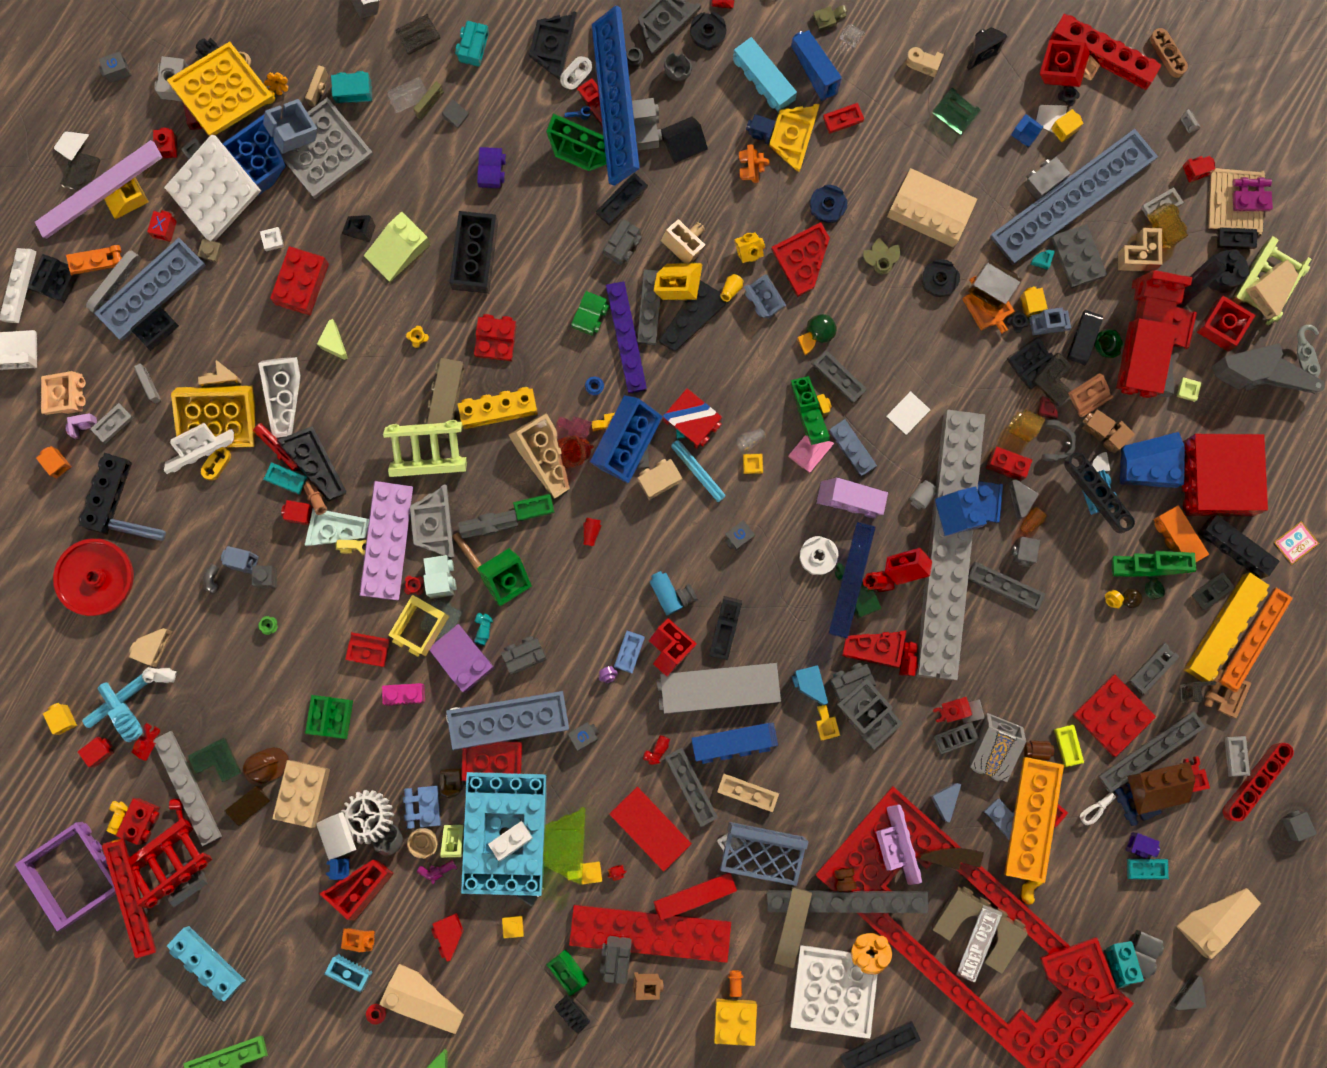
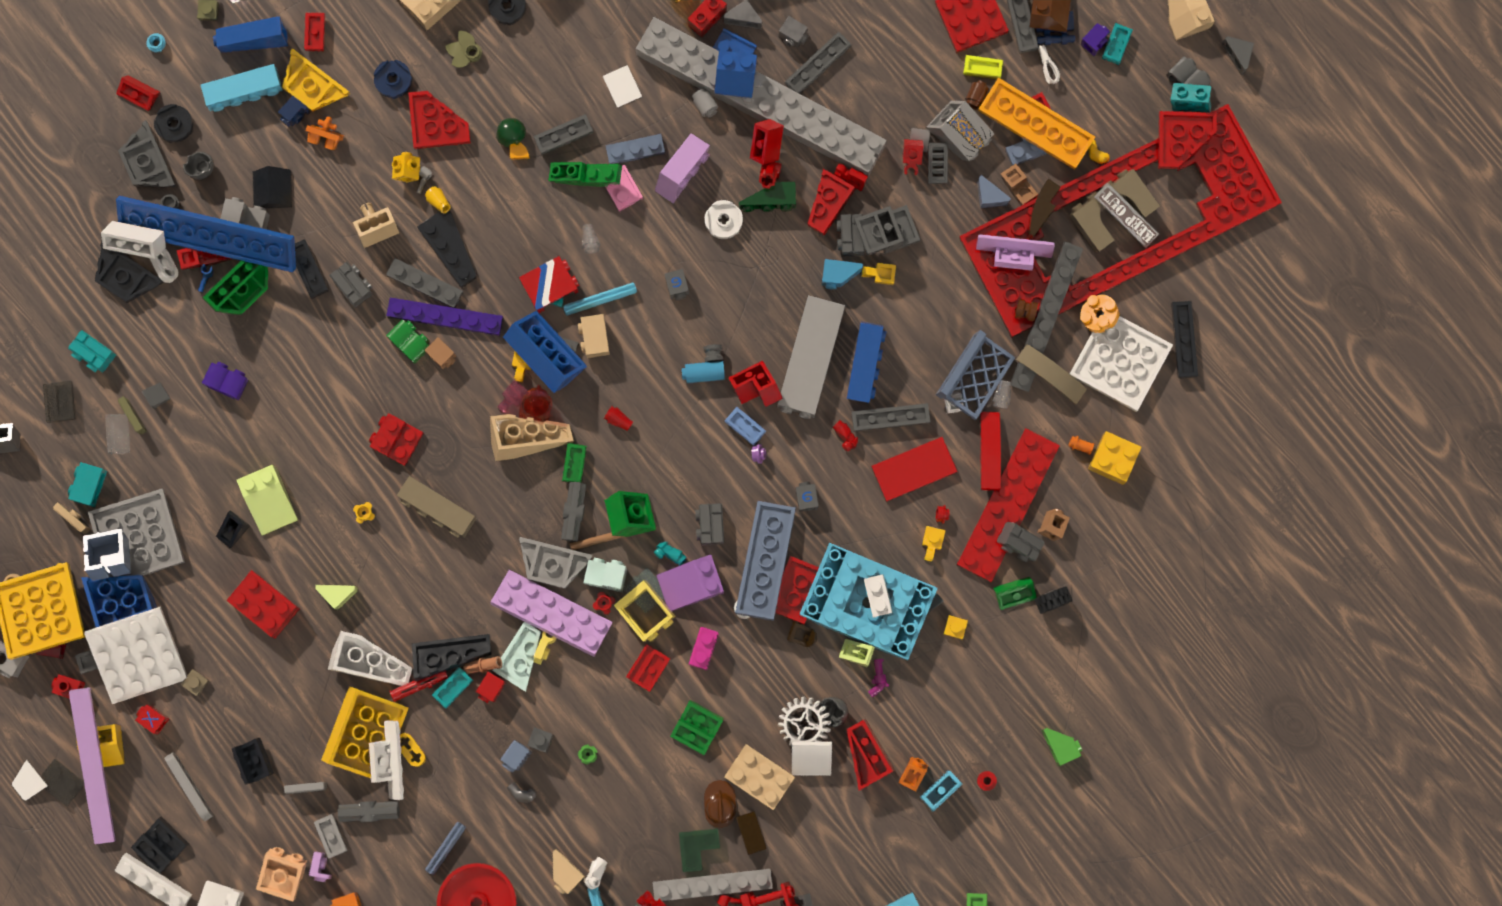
camera: 65 degrees left, 0 degrees up
(93, 260) = (159, 797): orange plate -> none
(105, 493) = (398, 865): black brick -> none
(145, 448) = (368, 811): none -> dark grey piece
(150, 288) = (210, 753): sand blue plate -> none
(223, 378) = (330, 711): tan slope -> none
(272, 239) = (209, 617): white plate -> none
(276, 82) = (51, 555): light orange plant -> none
(338, 868) = (842, 767): blue tile -> none
(416, 998) = (986, 738): tan wedge -> none
(417, 465) = (496, 546): yellowish green fence -> none
(422, 843) = (848, 681): tan hair -> none
(428, 807) = (816, 665): medium blue plate -> none
(449, 933) = (940, 686): red slope -> none
(473, 252) = (304, 427): black brick -> none
(497, 408) = (465, 462): yellow brick -> none
(565, 845) = (901, 550): clear neon green wing -> none
(585, 36) = (133, 240): none -> white brick
(589, 346) = (440, 353): none -> medium nougat brick
(594, 380) = (476, 359): blue plate -> none
(678, 281) = (411, 245): yellow slope -> none
(725, 627) = (757, 329): black slope -> none
(748, 792) = (915, 368): tan plate -> none
(752, 267) = (426, 174): none -> light grey hand
(752, 464) = (613, 246): yellow tile -> none
(753, 888) = (1002, 397): none -> clear cone
(764, 297) = (459, 172): sand blue bracket -> none
(824, 405) = (585, 157): yellow plate -> none
(851, 580) = (759, 197): clear blue tile -> none
(967, 825) = (1018, 185): none -> medium nougat slope
(1033, 520) = (767, 14): clear orange cone -> none

